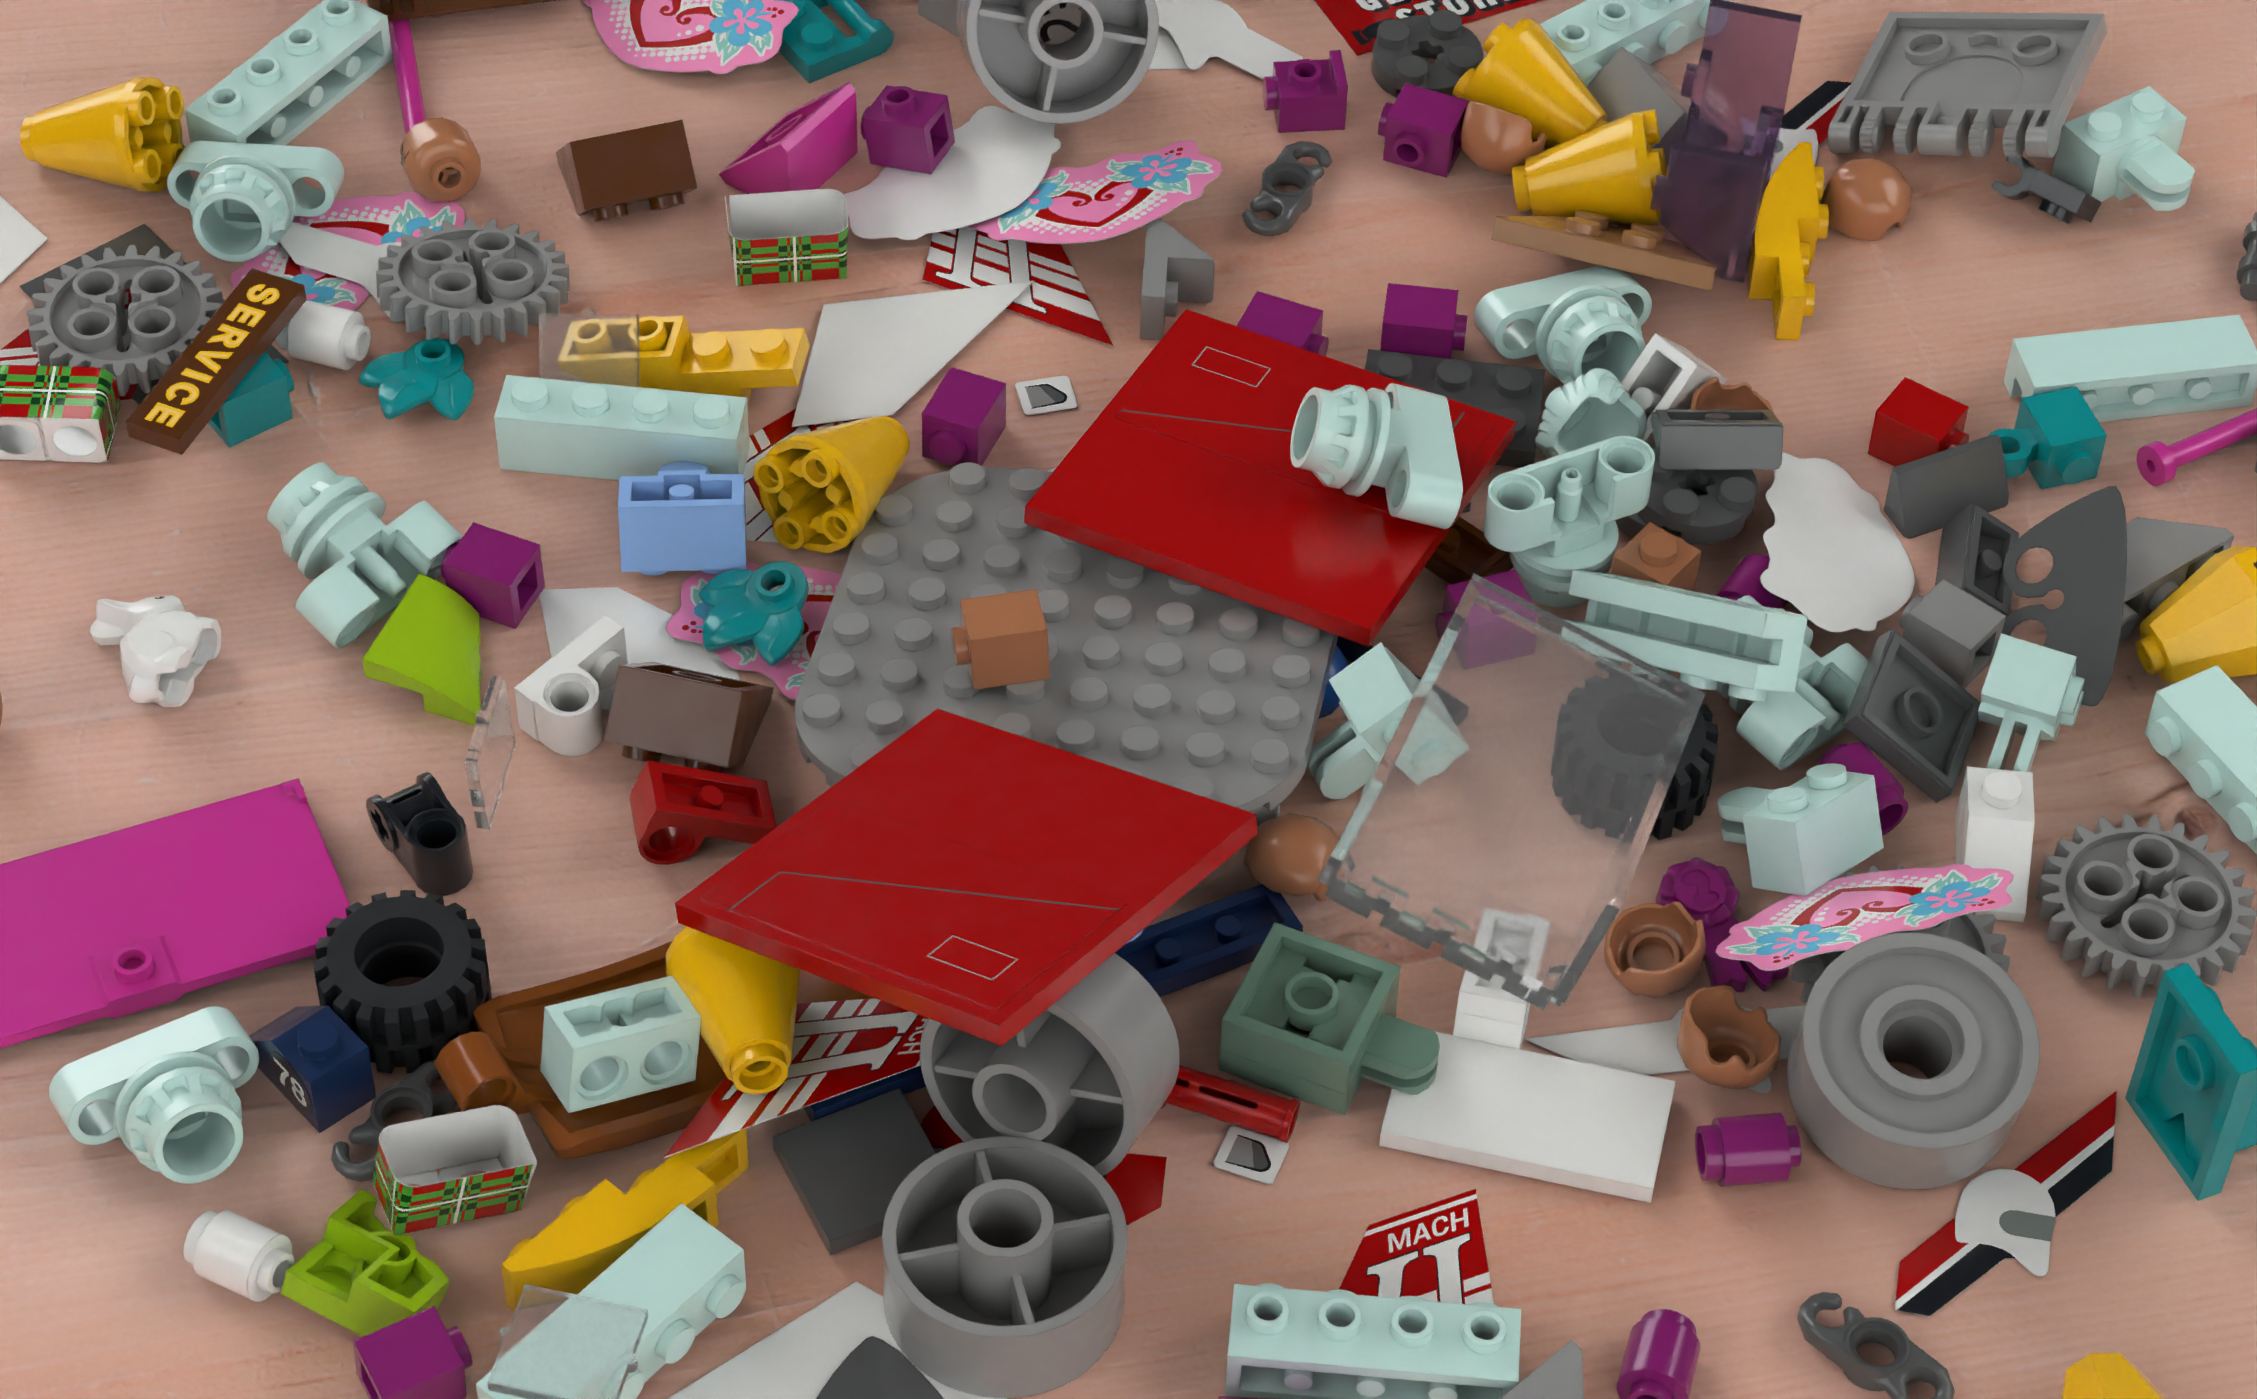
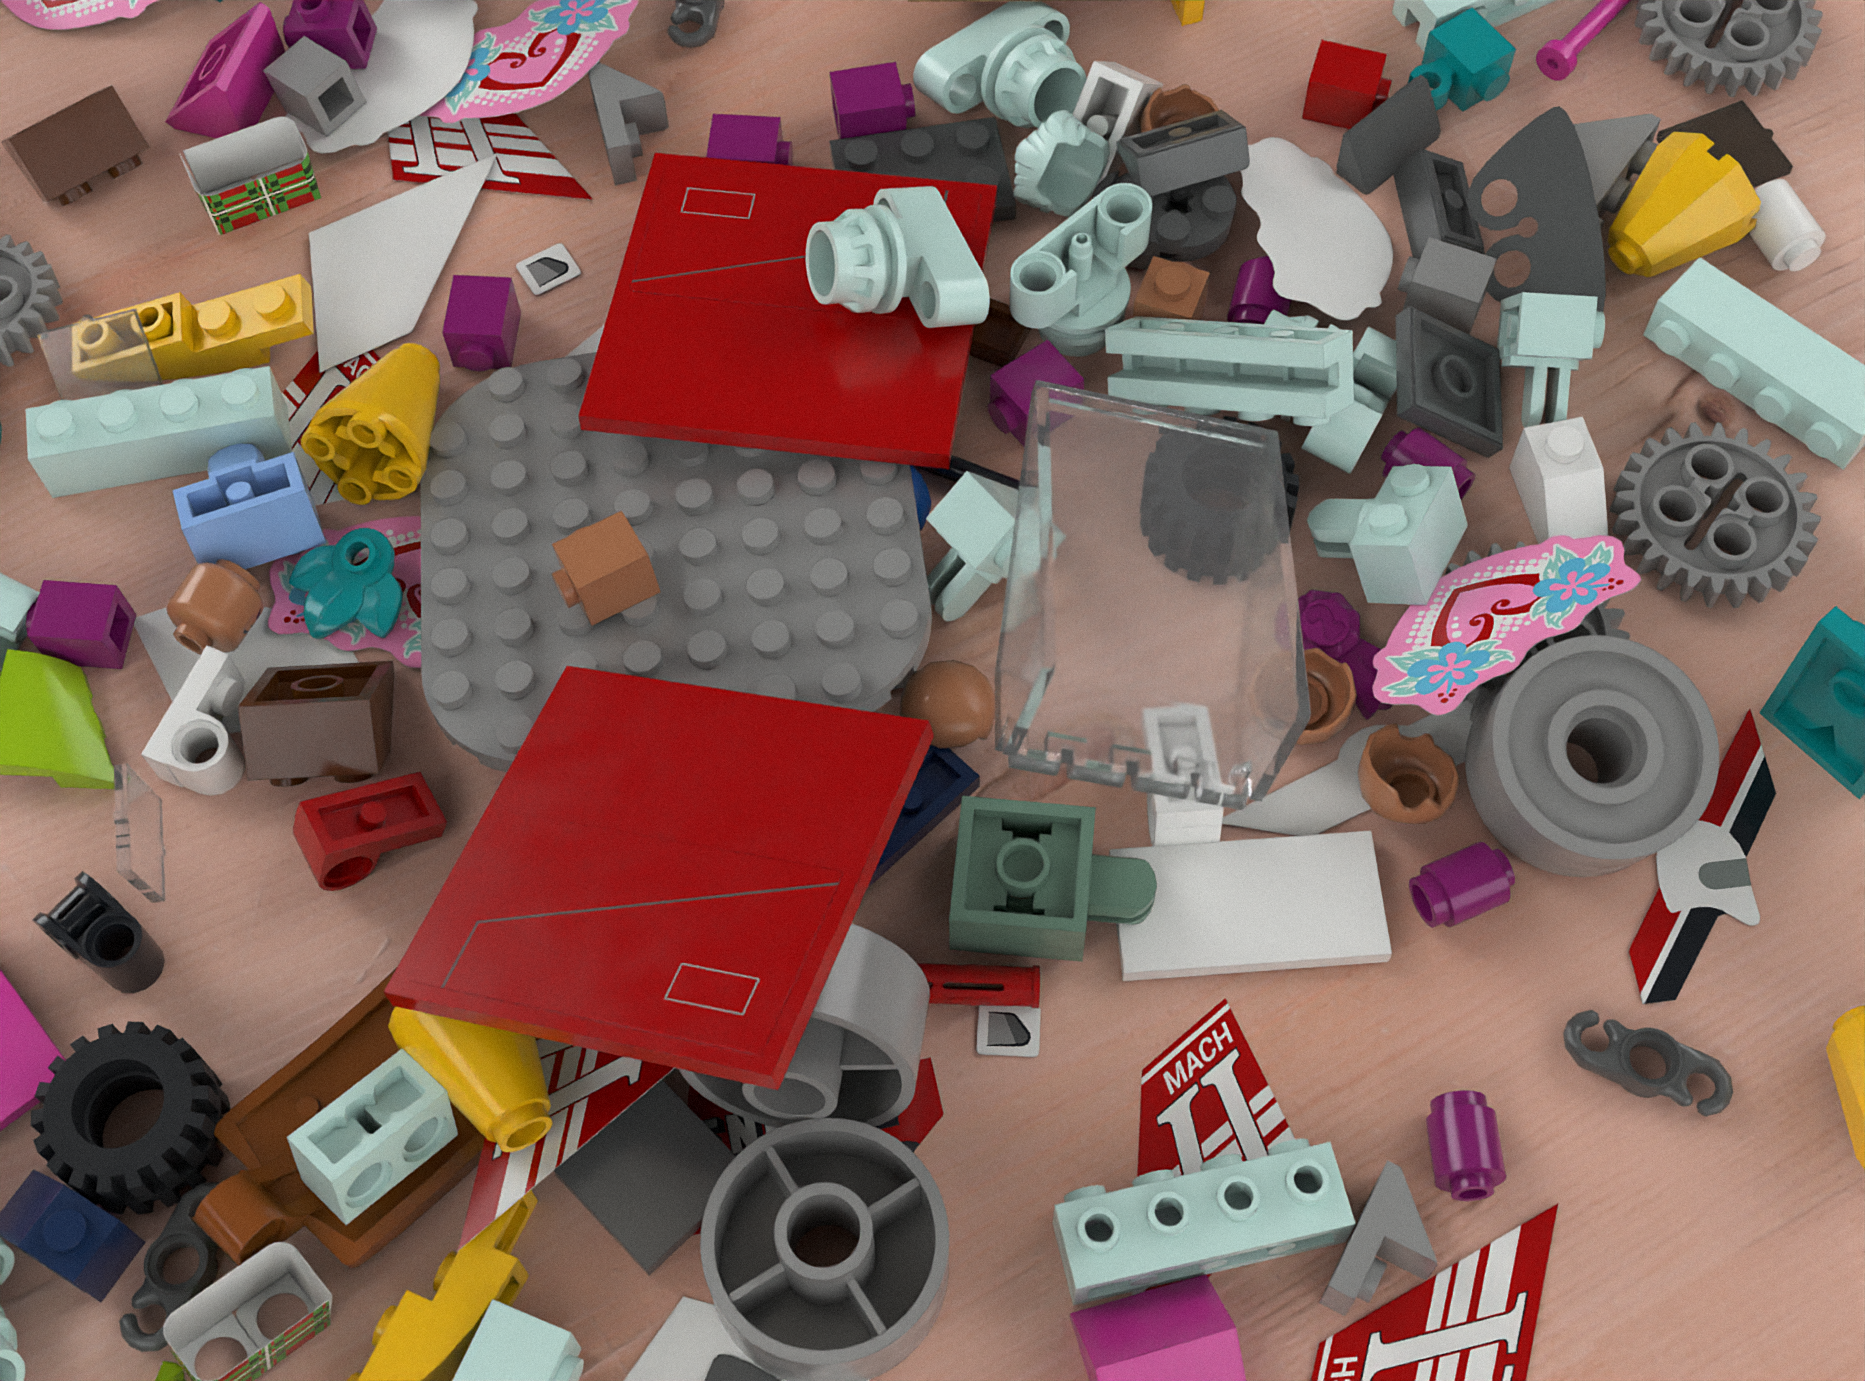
camera: 15 degrees left, 15 degrees up
(626, 586) = (215, 606): none -> nougat head
(875, 174) = (315, 86): none -> light grey brick

